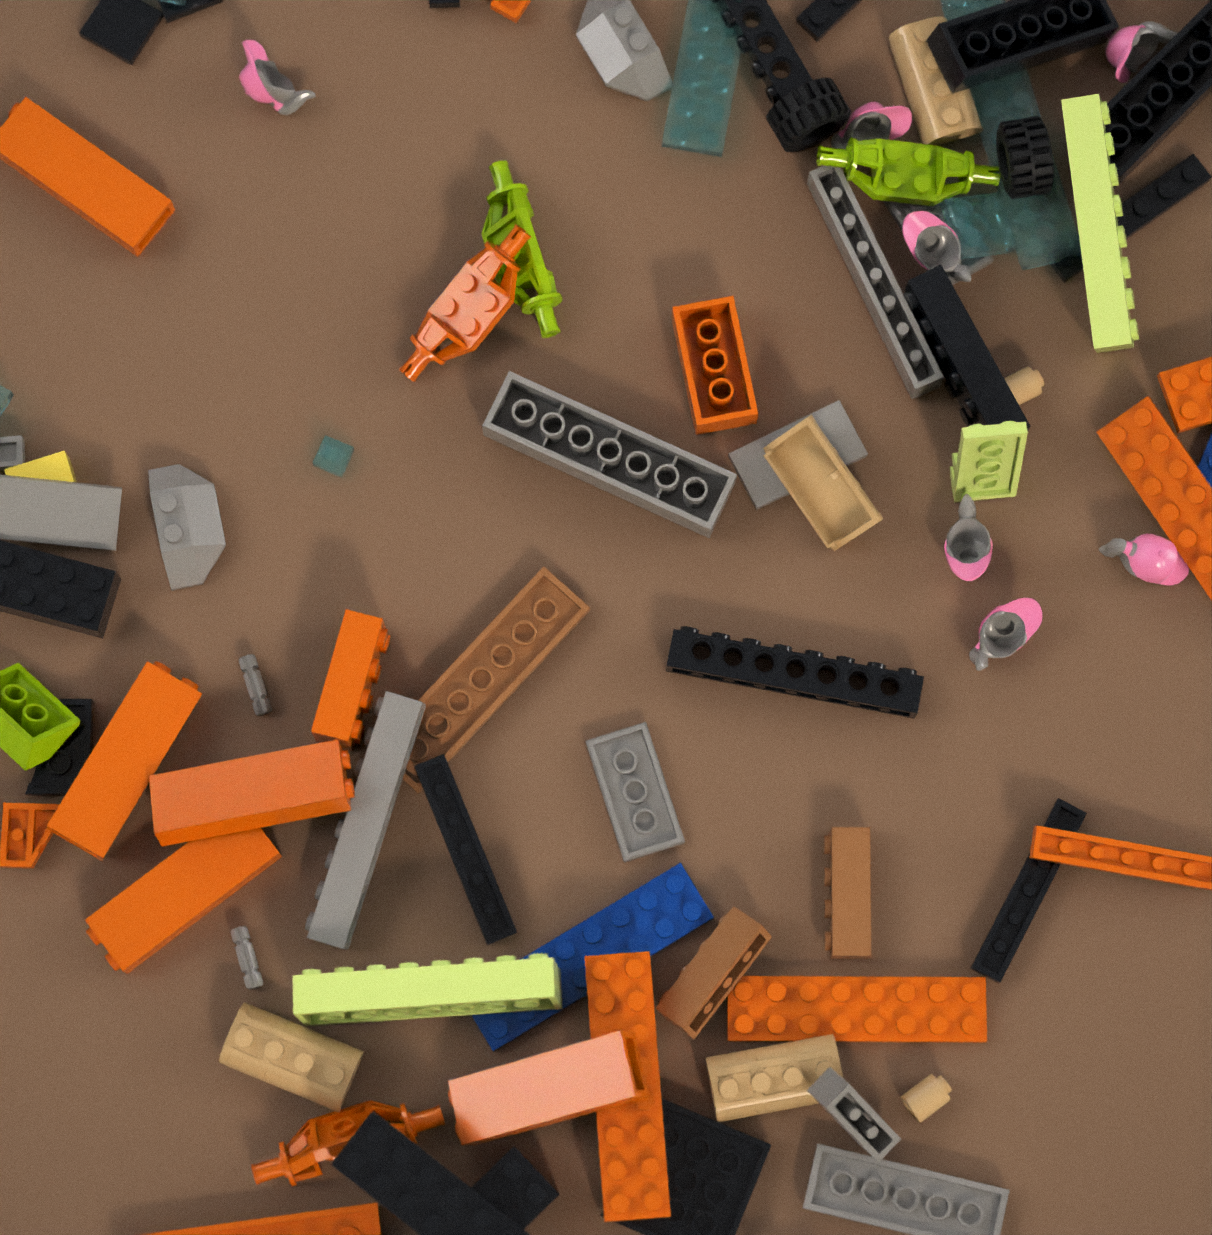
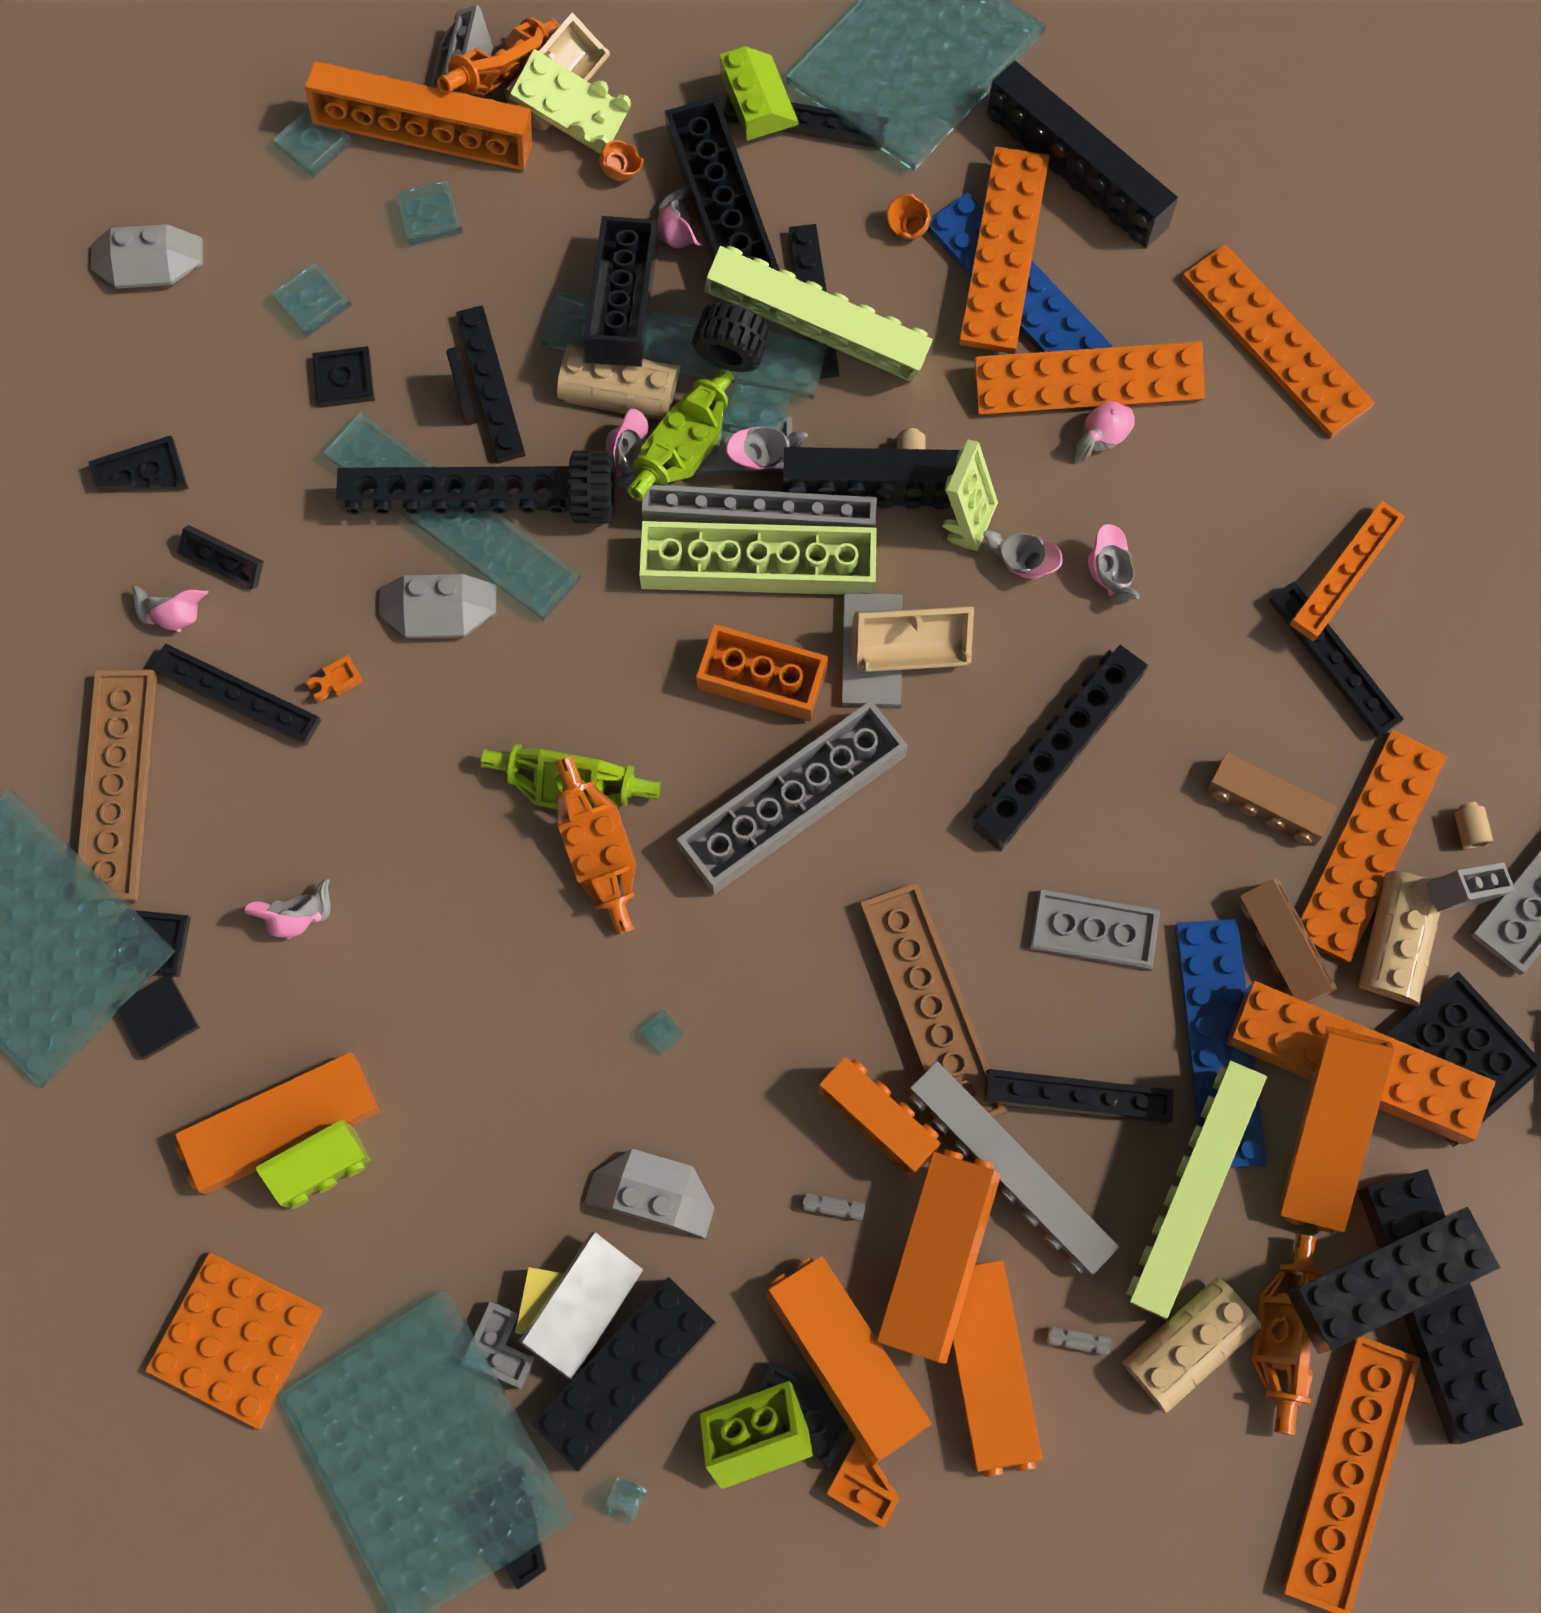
camera: 60 degrees left, 5 degrees down
(60, 226) = (314, 1164): none -> lime slope
(826, 303) = (757, 558): none -> yellowish green brick

